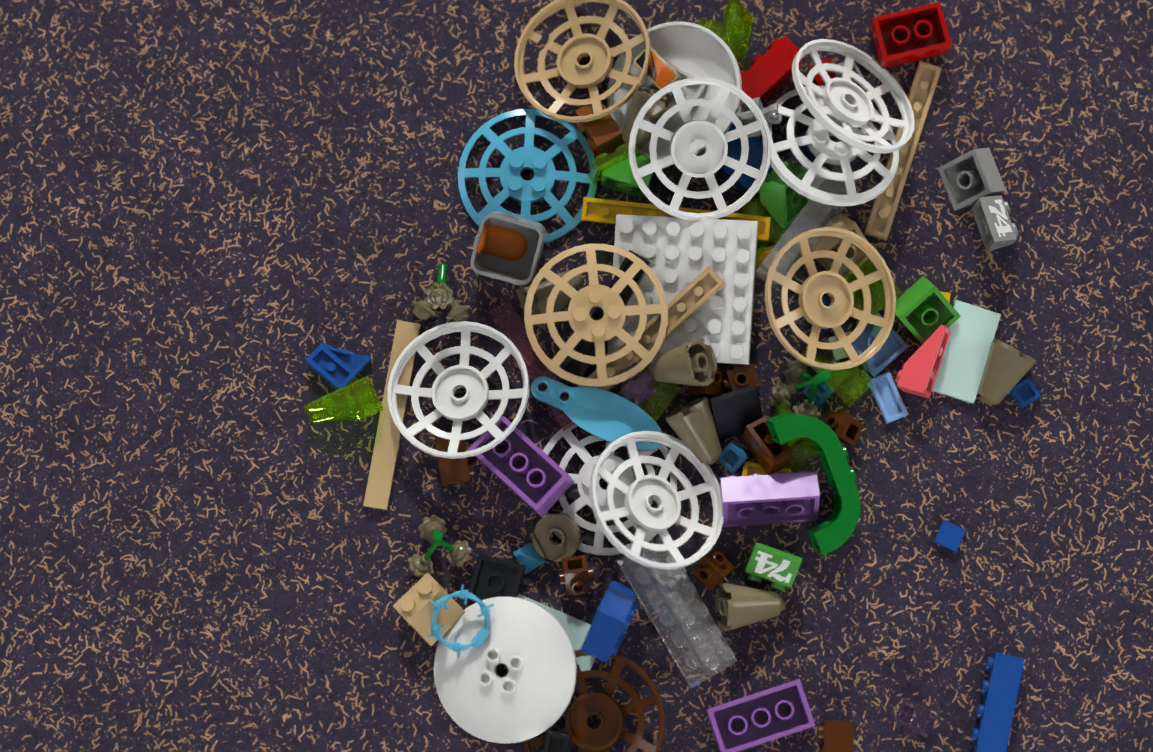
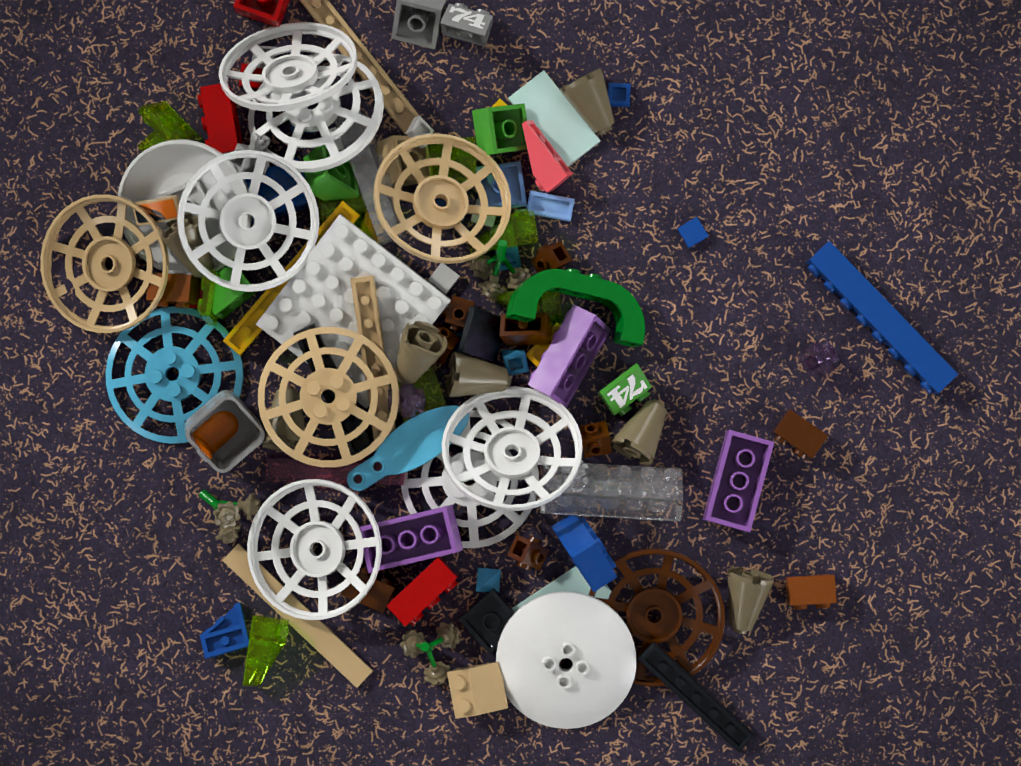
camera: 55 degrees left, 5 degrees up
(480, 636) = (528, 665): medium azure piece -> none
(482, 506) = (423, 592): none -> red brick
(561, 524) = (480, 536): dark tan plate -> none
(763, 348) = (443, 278): none -> white tile
(877, 240) = (419, 127): none -> white tile

